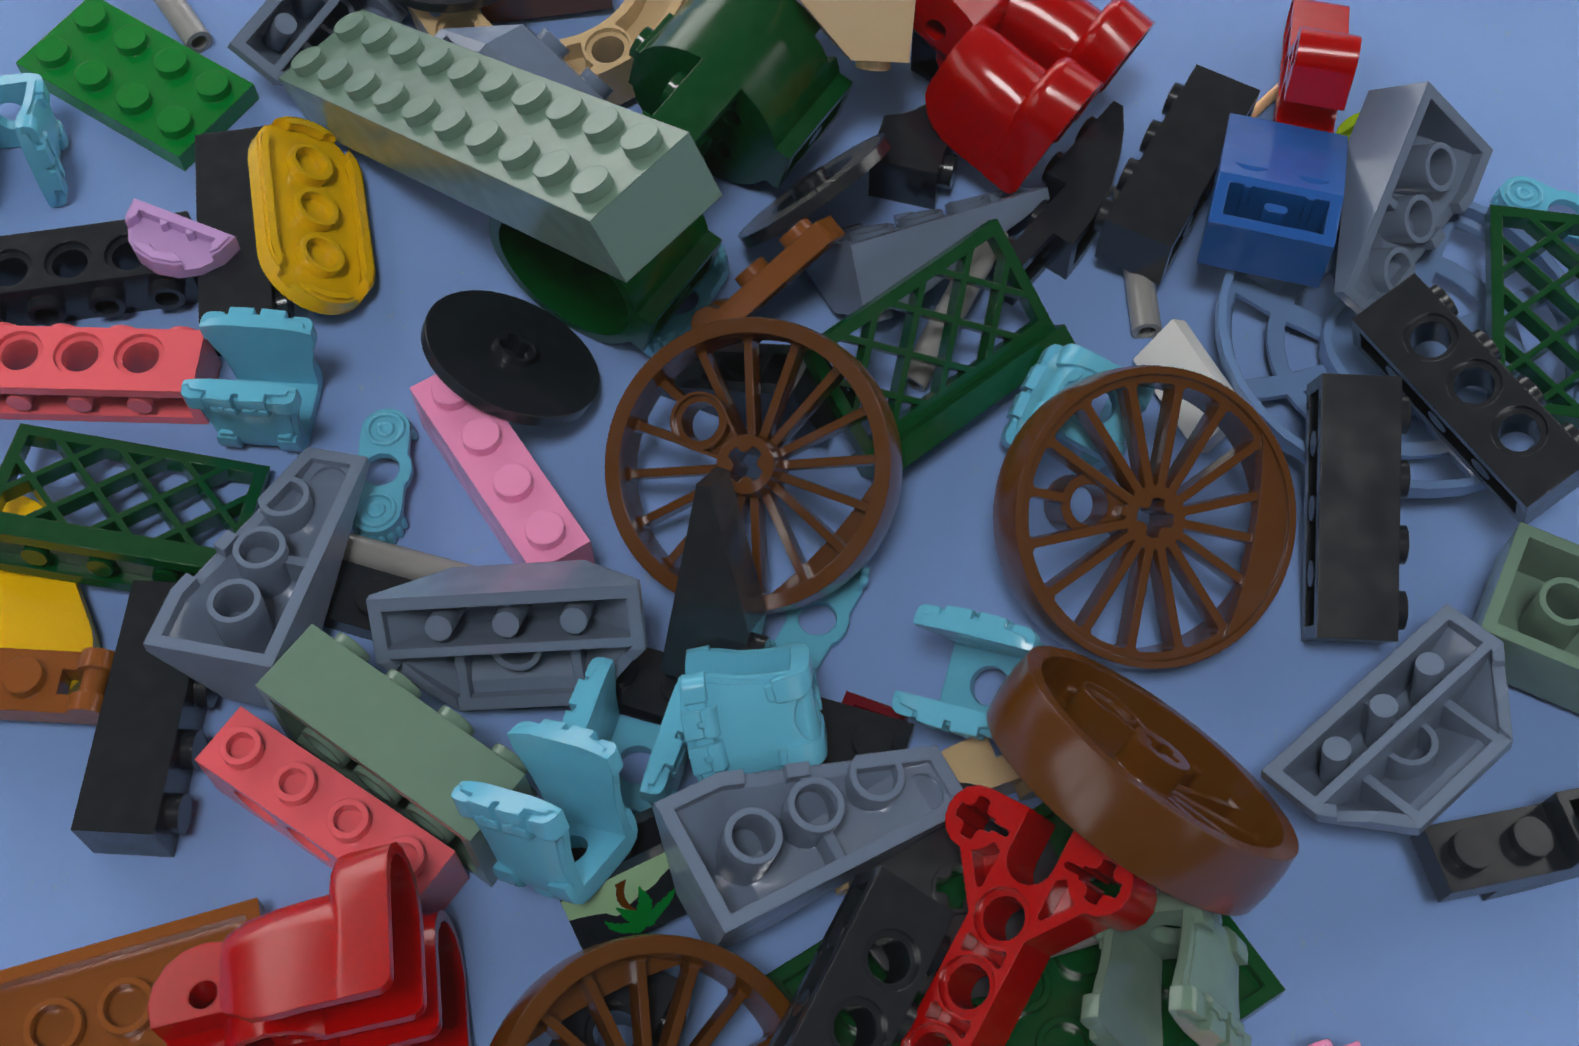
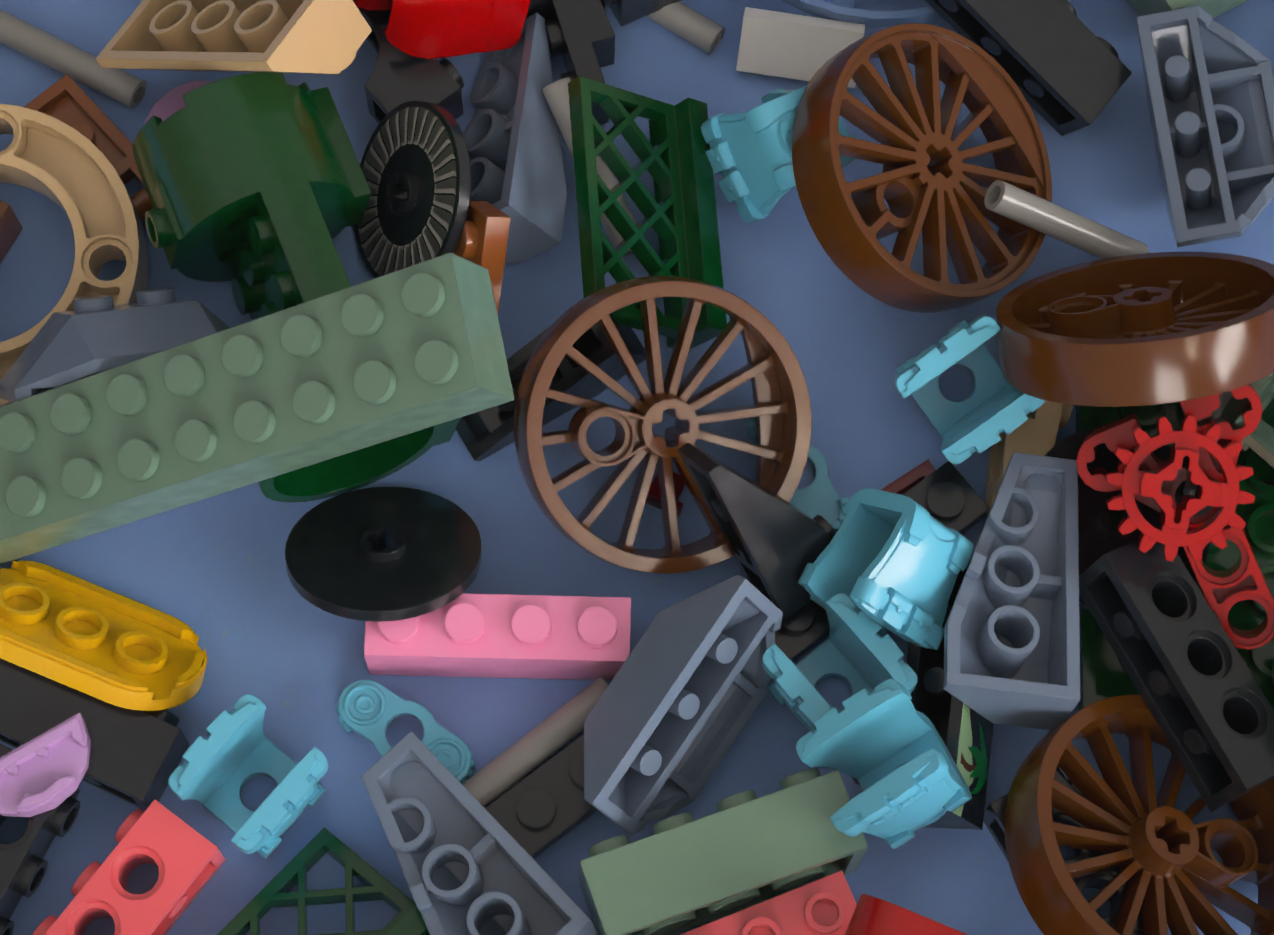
camera: 60 degrees left, 10 degrees up
(954, 880) = (1208, 493): none -> red gear
(1200, 668) = (1059, 222): none -> light grey piece

